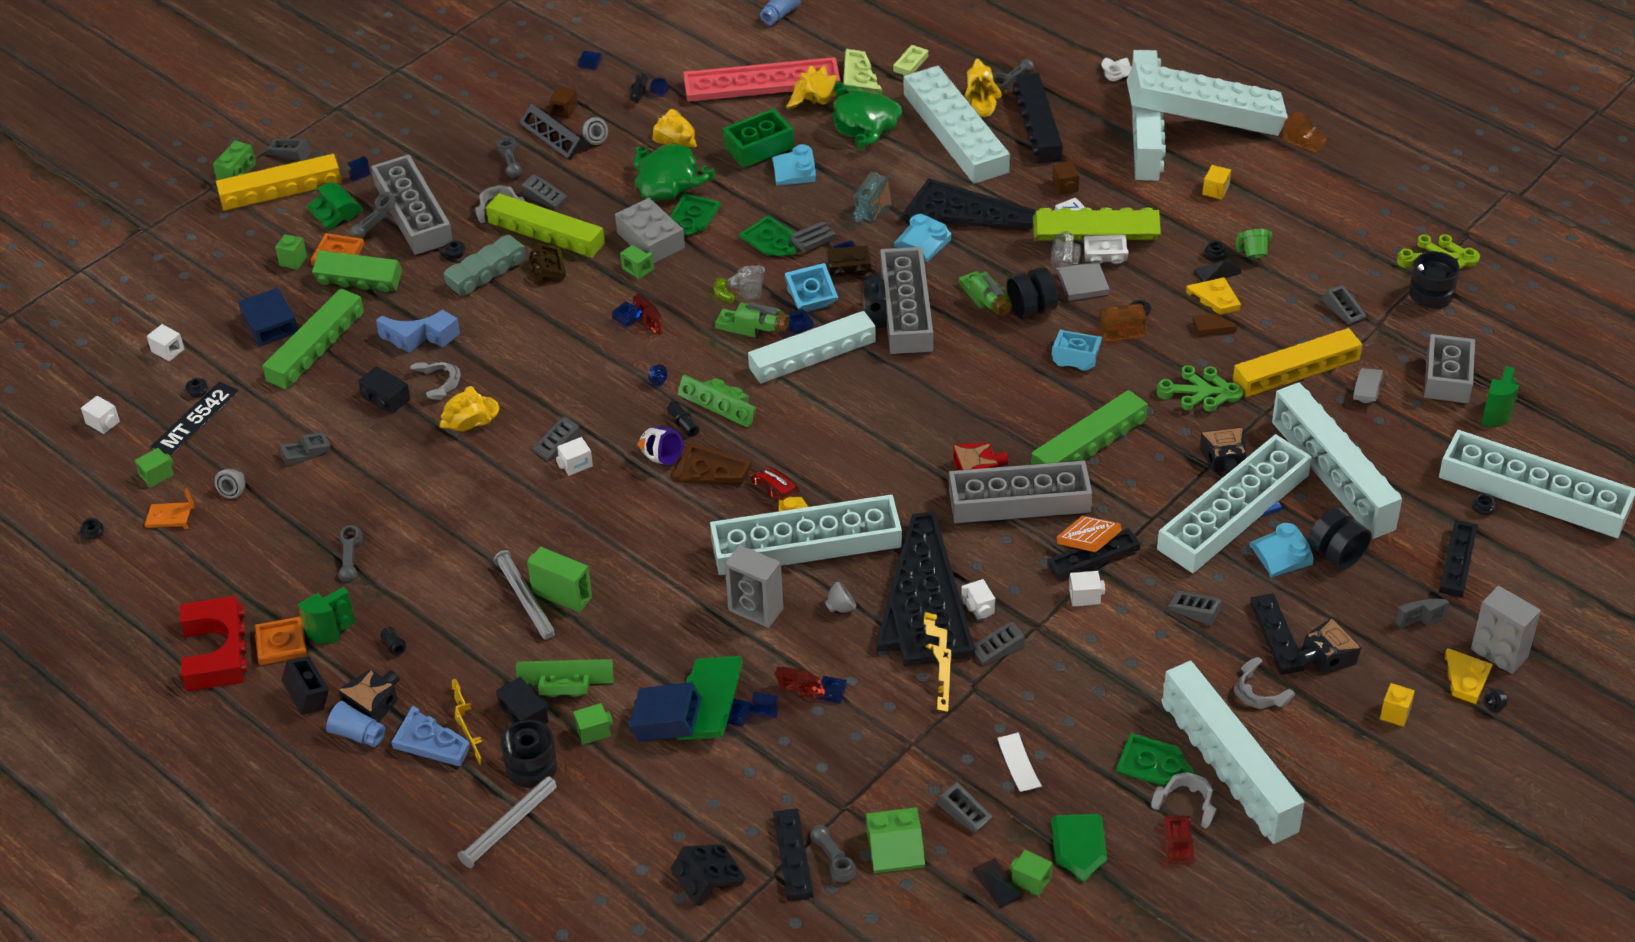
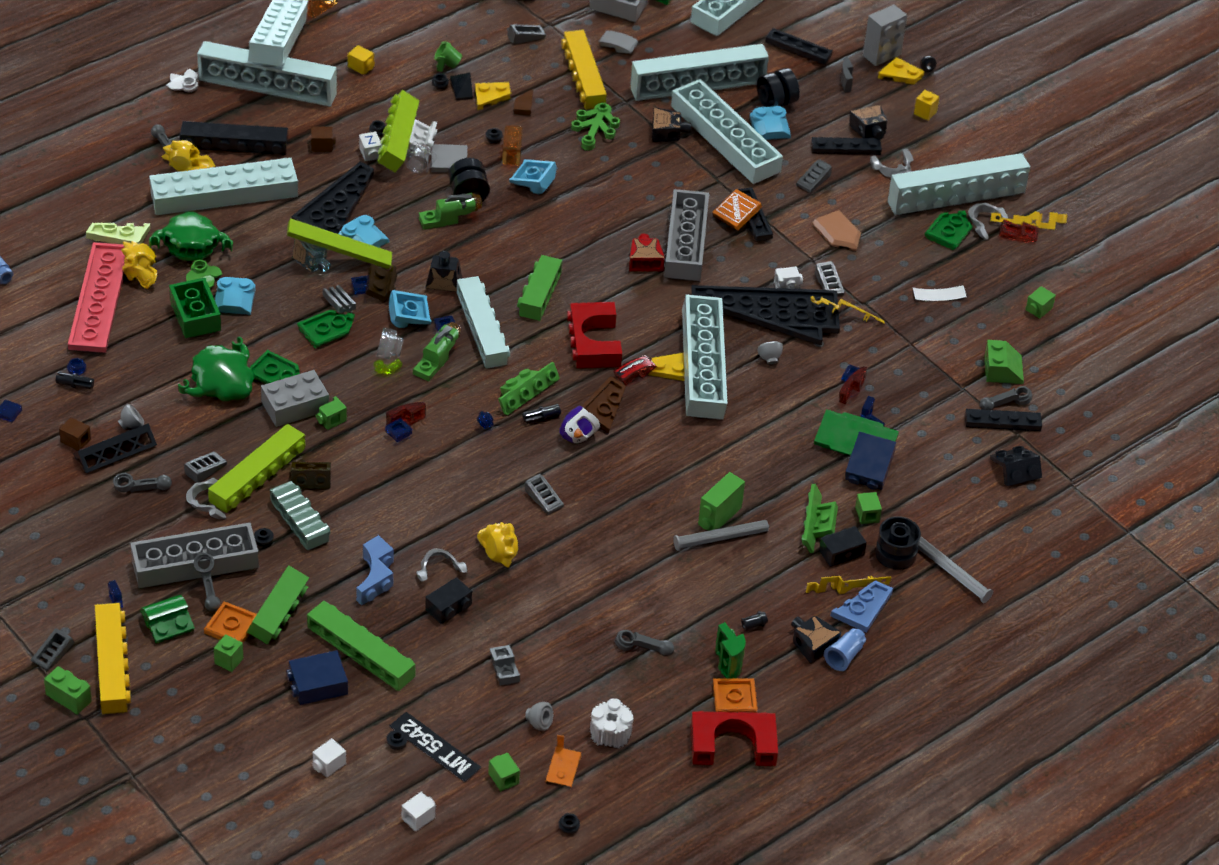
camera: 85 degrees left, 0 degrees up
(220, 537) = (611, 724): none -> white brick
(305, 685) = (800, 674): black brick -> none
(574, 456) = (571, 483): white brick -> none
(674, 129) = (158, 362): yellow head -> none
(754, 586) = (764, 385): light grey brick -> none
(821, 138) = (201, 269): none -> bright green plate
(841, 425) = (586, 351): none -> red arch
(878, 202) = (339, 243): none -> lime tile
(885, 384) = (540, 287): none -> bright green brick
(906, 300) = (477, 256): light grey brick -> none
(910, 60) = (116, 198): yellowish green plate -> none
(957, 791) = (973, 327): dark grey slope -> none
(997, 883) = (1040, 324): black slope -> none
(1079, 843) = (1014, 279): green tile -> none
(1086, 588) = (788, 224): white brick -> none
(1094, 431) = (632, 189): bright green brick -> none
(1103, 645) = (838, 230): none -> nougat tile
(1210, 855) = (1017, 219): none -> yellow piece
(1483, 504) = (750, 22): black plate -> none

